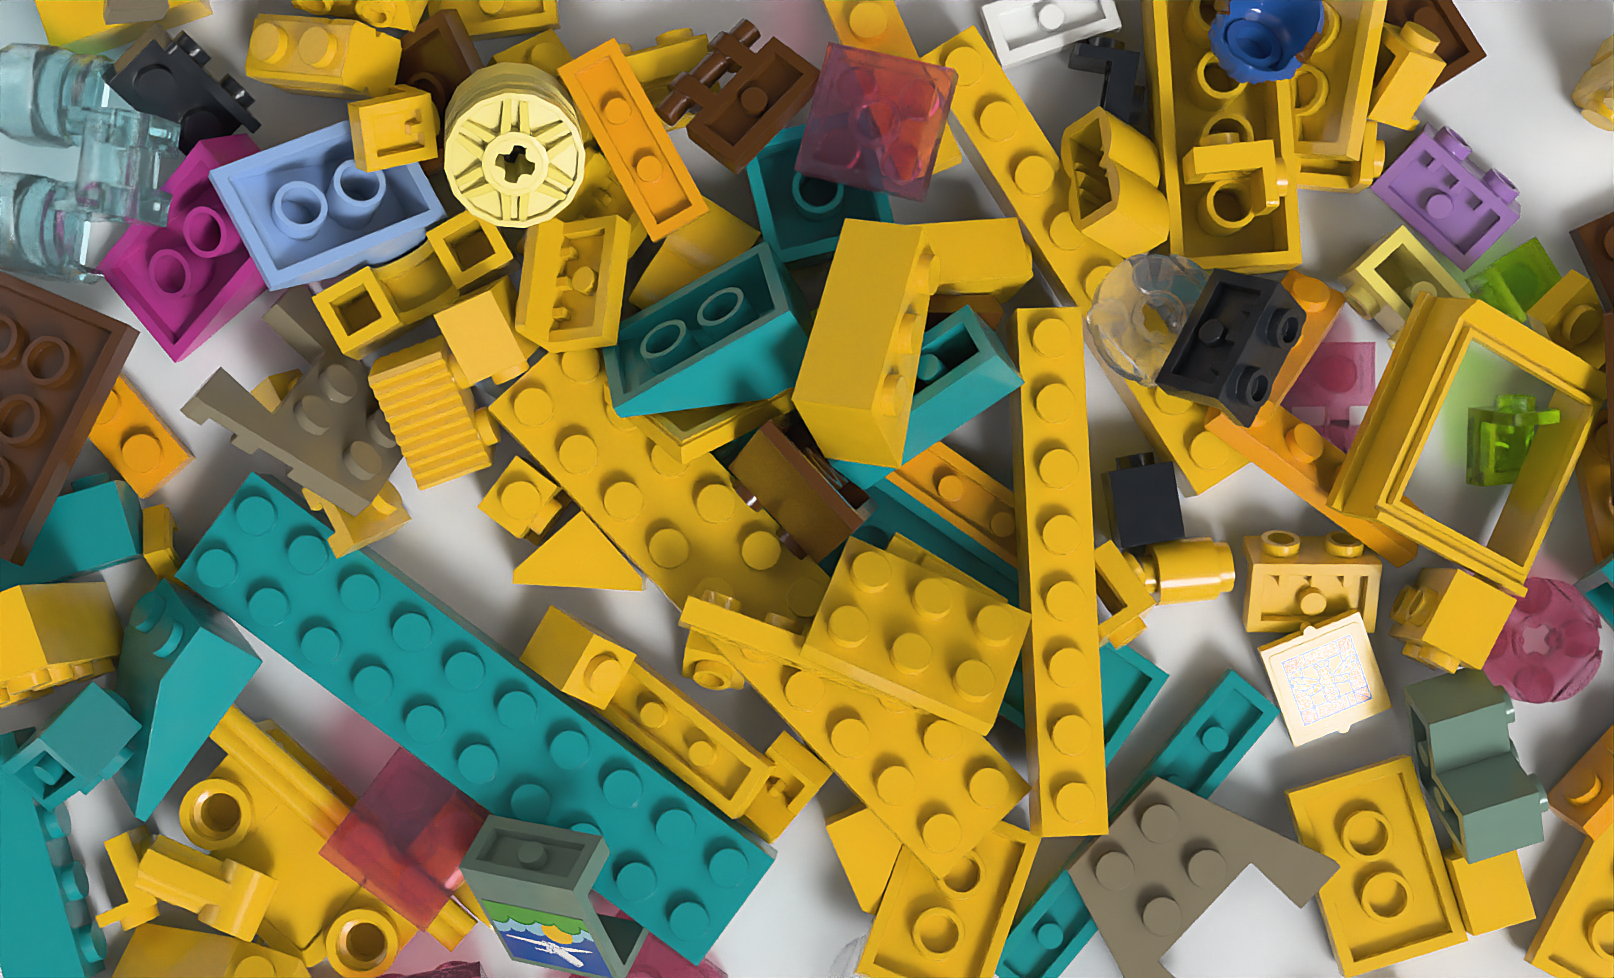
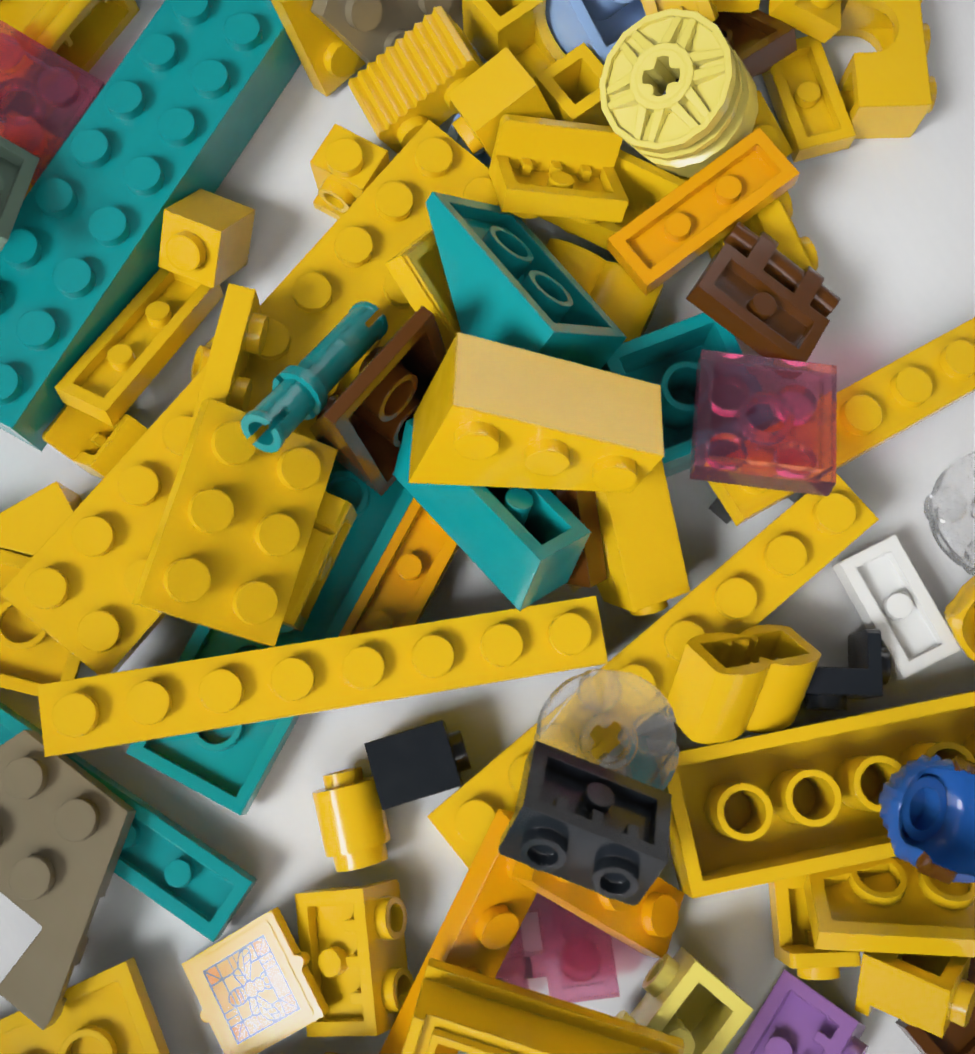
camera: 85 degrees right, 10 degrees down
(580, 558) = (296, 221): yellow slope -> none
(795, 555) = (303, 388): none -> teal pin
(1123, 593) = (328, 747): yellow bracket -> none
(1226, 158) = (792, 798): yellow bracket -> none

